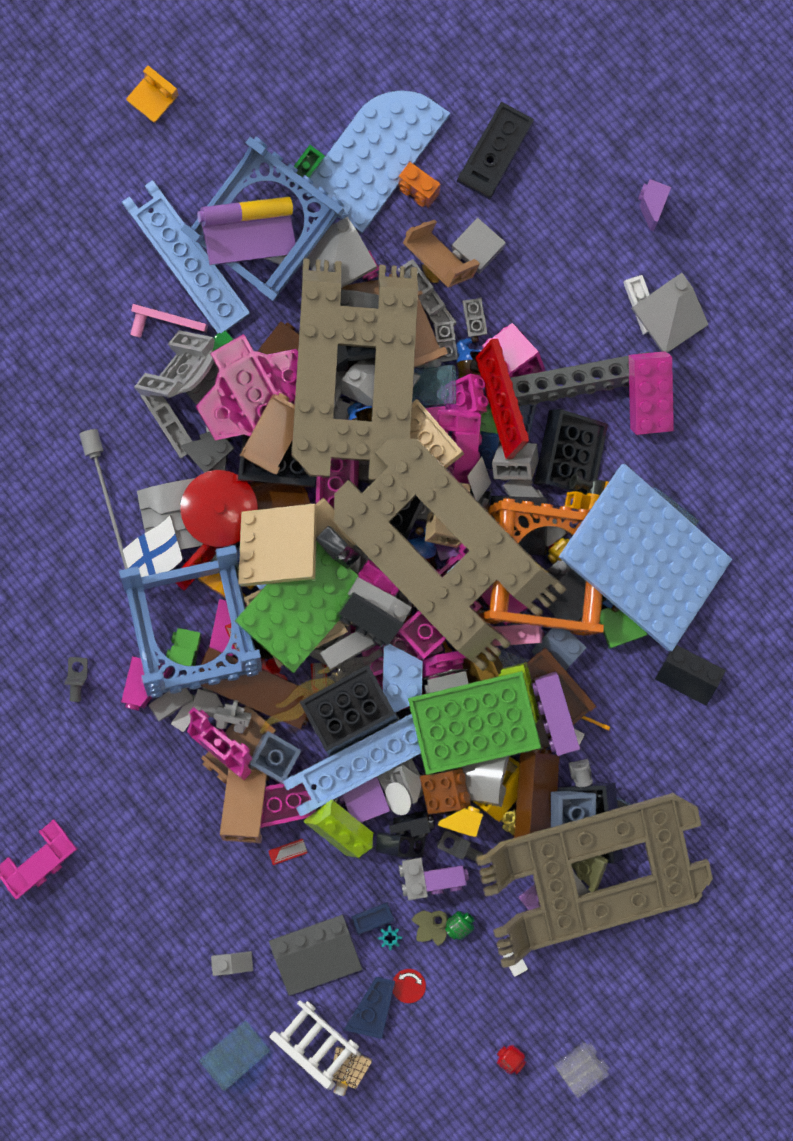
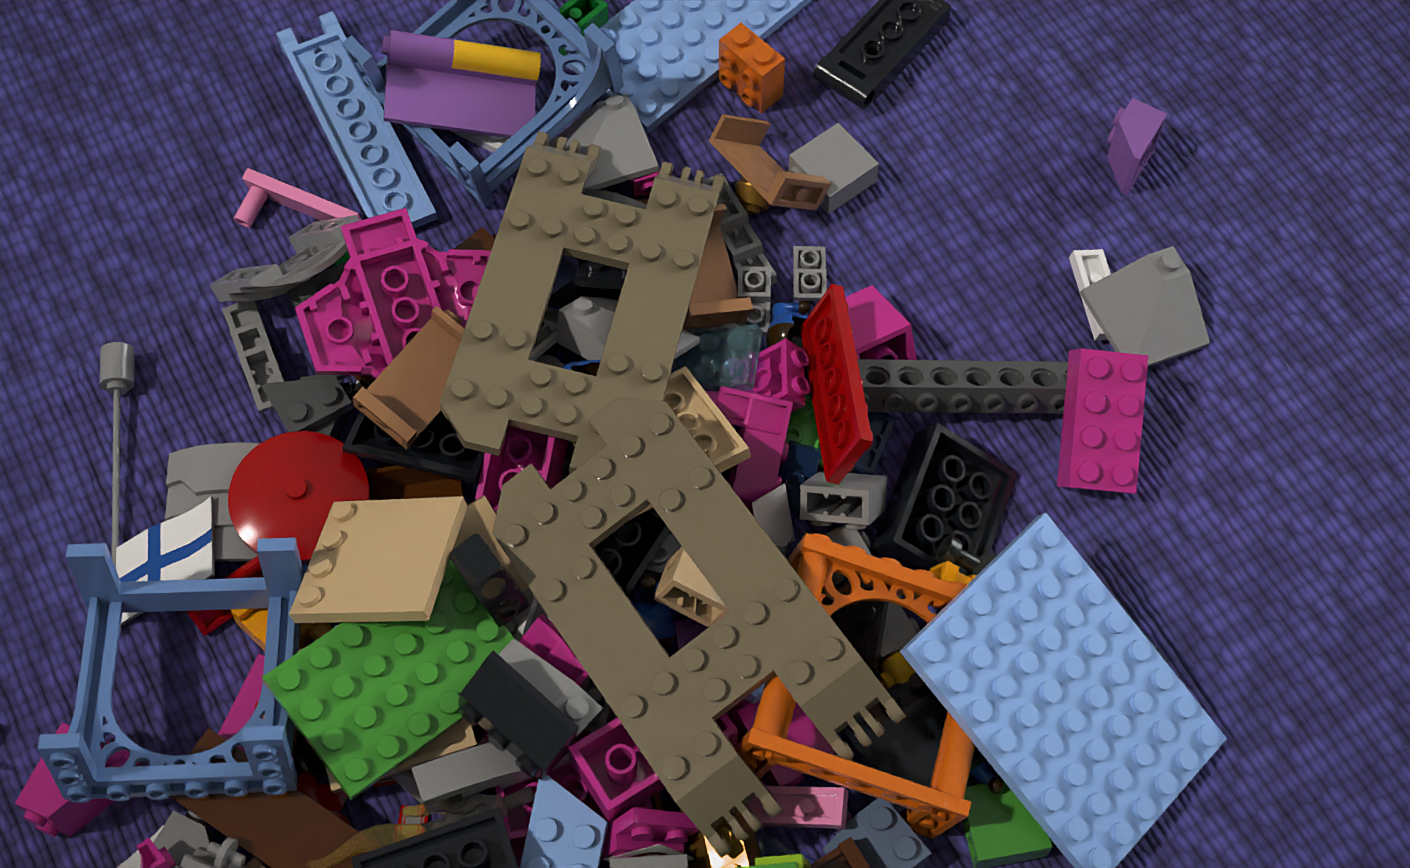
camera: 10 degrees right, 20 degrees down
(169, 703) = (121, 828): light grey slope -> none
(185, 647) = (173, 727): bright green brick -> none

